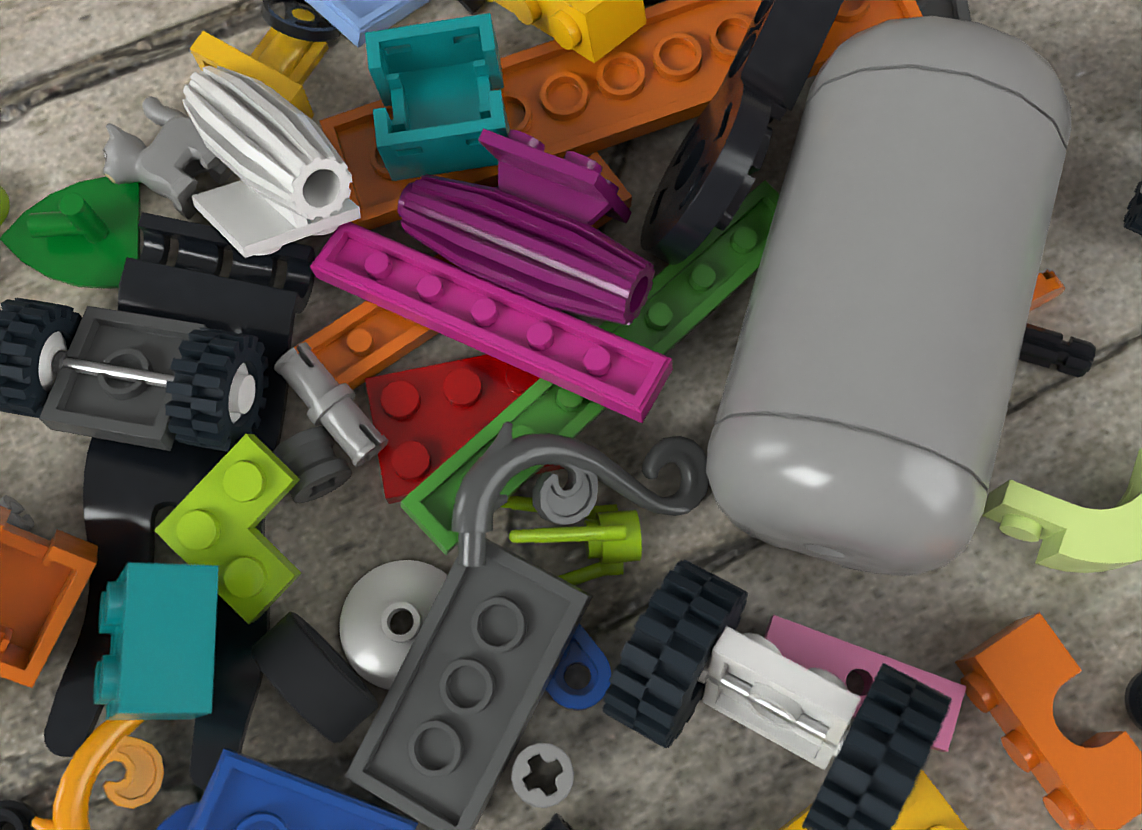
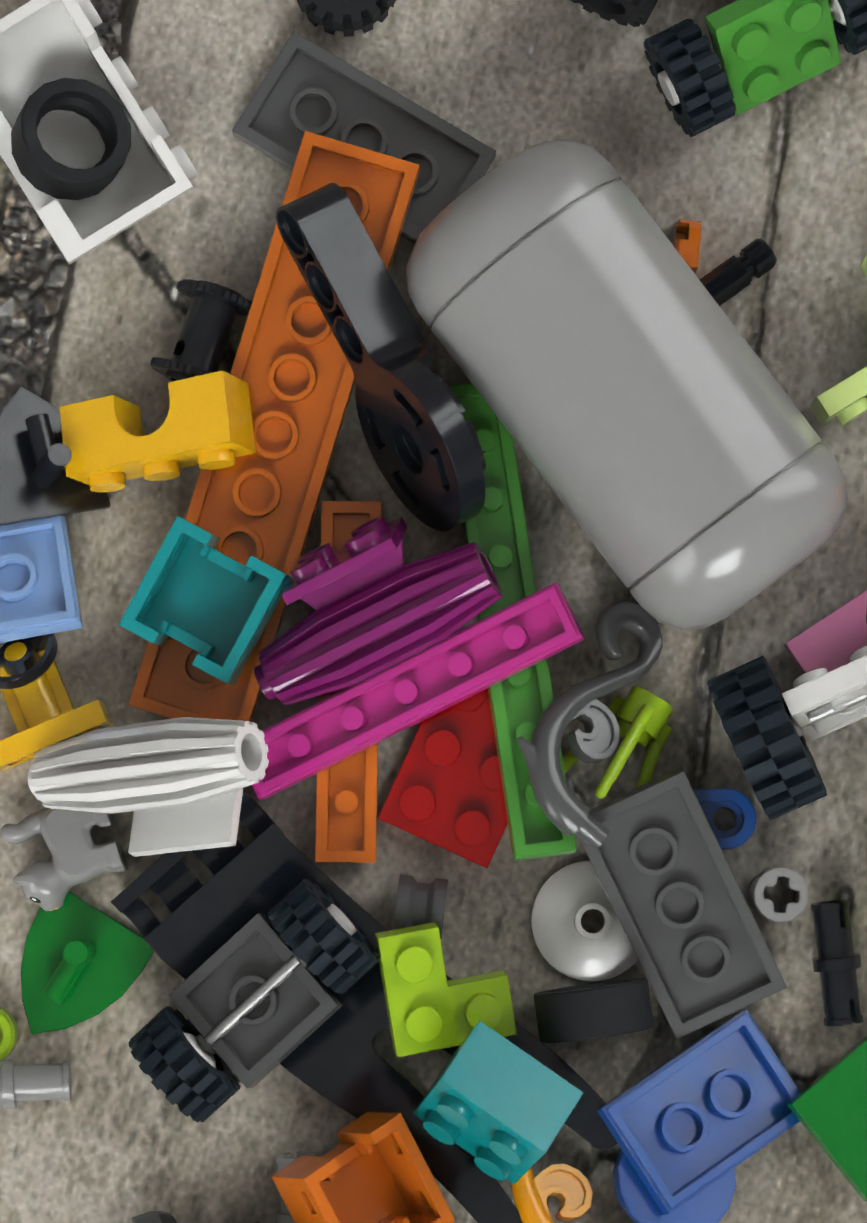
camera: 50 degrees left, 10 degrees up
(330, 404) = (389, 859): light grey pin -> none

